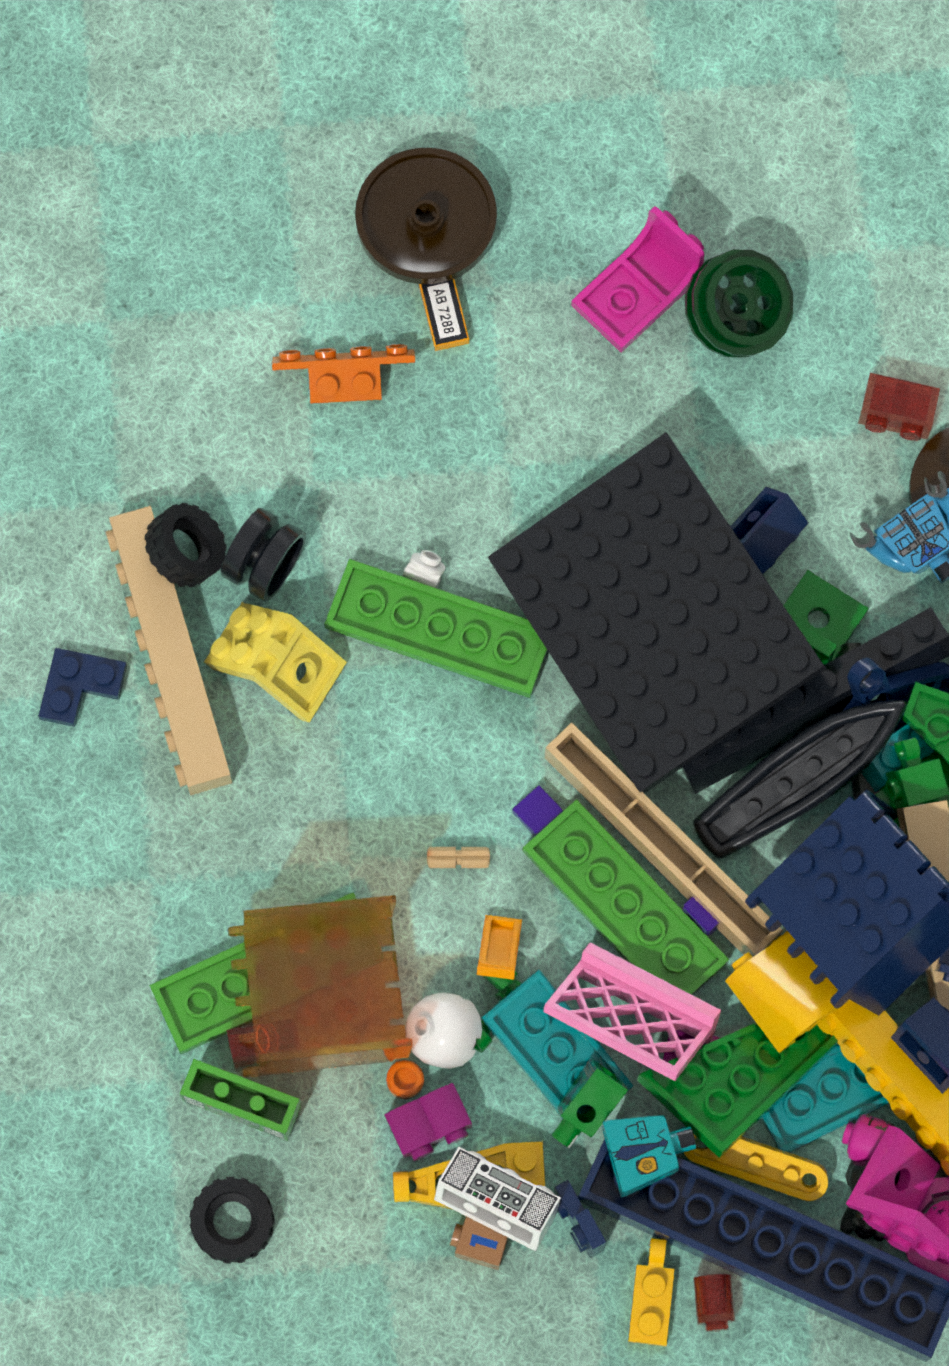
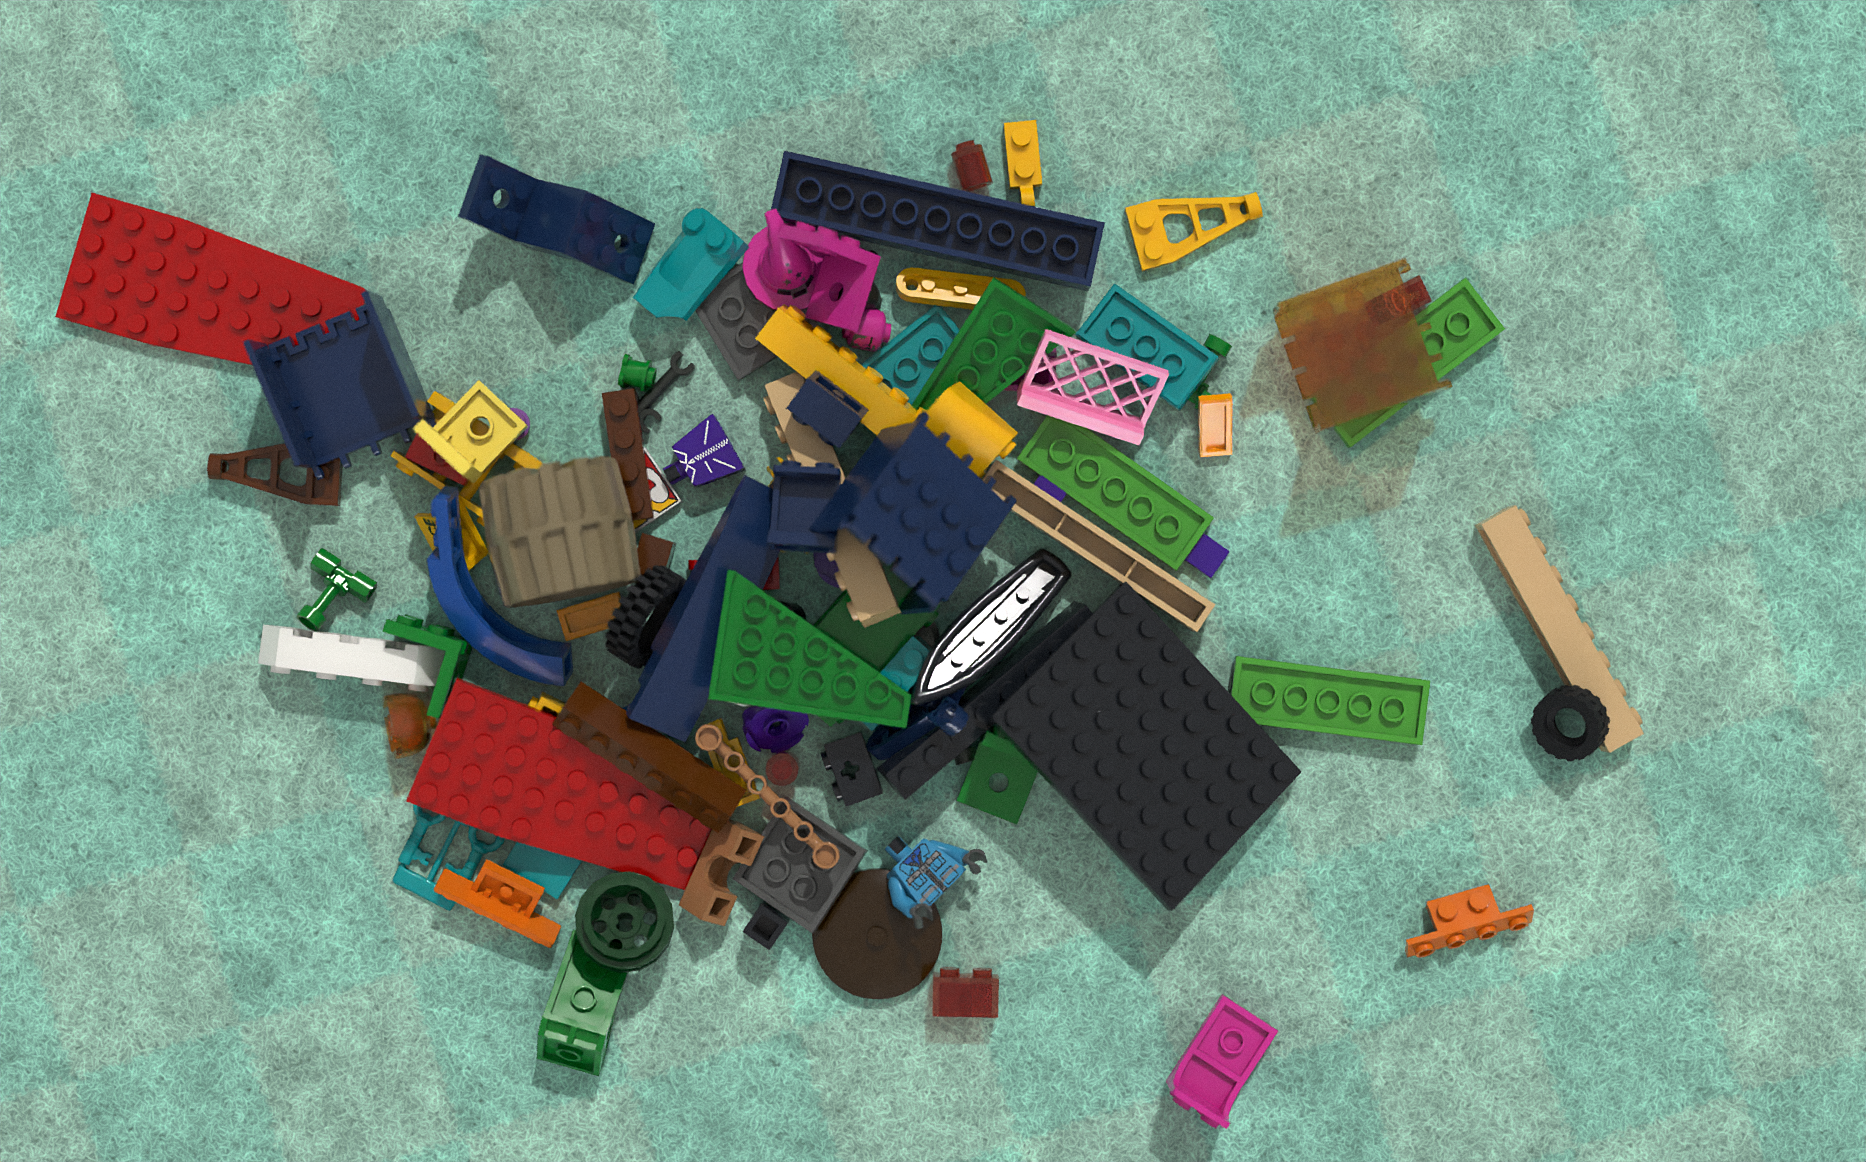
camera: 165 degrees right, 15 degrees up
(77, 674) = (1638, 586): dark blue plate -> none
(232, 1191) = (1412, 147): black tyre -> none
(240, 1099) = (1393, 242): bright green brick -> none
(263, 554) = (1500, 728): black wheel -> none
(268, 650) = (1474, 640): light yellow bracket -> none
(405, 1079) = (1266, 298): orange tile -> none
(425, 568) = (1351, 752): white plate -> none
(426, 215) = (1427, 1083): dark brown dish -> none
(429, 1121) = (1241, 265): magenta brick -> none
(444, 315) = (1388, 997): tile -> none
(444, 1030) = (1248, 342): white cylinder -> none
(466, 857) = (1260, 501): tan piece -> none
(478, 1244) = (1176, 172): medium nougat brick -> none
(497, 1198) = (1172, 206): brick -> none
(585, 1230) = (1091, 197): dark blue plate -> none
(592, 1087) = (1112, 305): green torso -> none
(644, 1150) = (1059, 266): teal torso -> none
(709, 304) = (1106, 1084): dark green wheel -> none
(769, 526) = (1062, 850): dark blue brick -> none
(916, 779) = (889, 640): green brick -> none

